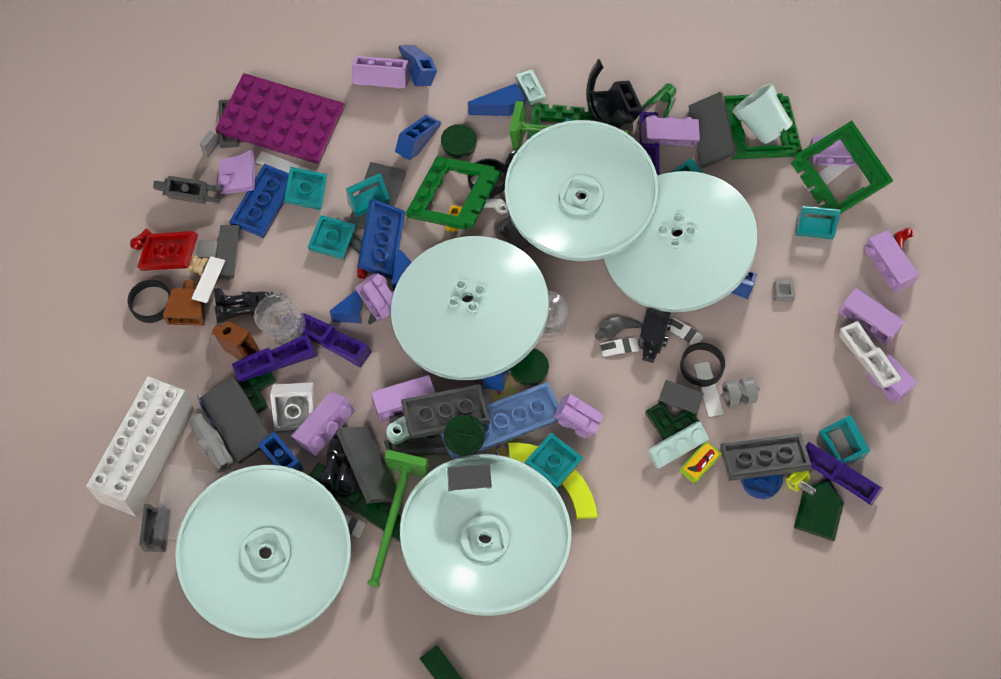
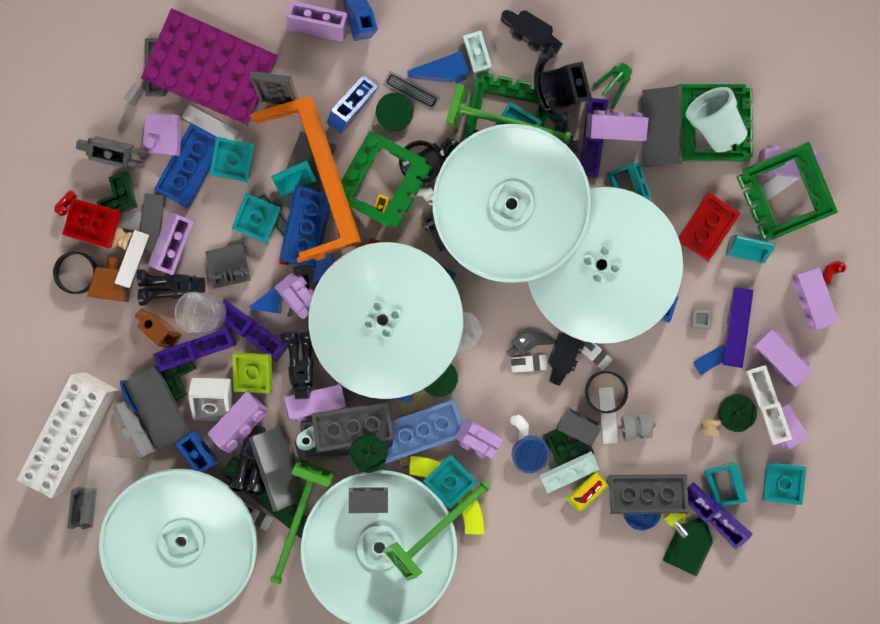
camera: 10 degrees right, 25 degrees up
(198, 222) = (123, 194): none -> dark green tile
(247, 262) = (170, 243): none -> lavender brick
(305, 282) = (227, 266): none -> dark grey hinge
(335, 374) = (252, 372): none -> lime plate
(345, 116) = (273, 87): none -> dark grey tile
(385, 366) = (300, 371): none -> black piece
(422, 233) = (327, 171): none -> orange piece
(477, 125) = (411, 90): none -> sticker
(516, 530) = (403, 560): none -> bright green tile
(575, 65) = (530, 30): none -> black hinge
(622, 404) = (521, 424): none -> white arm
(634, 429) = (530, 454): none -> tile
(774, 209) = (708, 226): none -> red plate
(803, 327) = (709, 360): none -> blue sticker
(815, 386) = (710, 427): none -> tan wheel
(822, 294) = (737, 328): none -> dark purple slope
(839, 374) = (737, 412): none -> dark green tile
(904, 435) = (784, 483): none -> teal plate

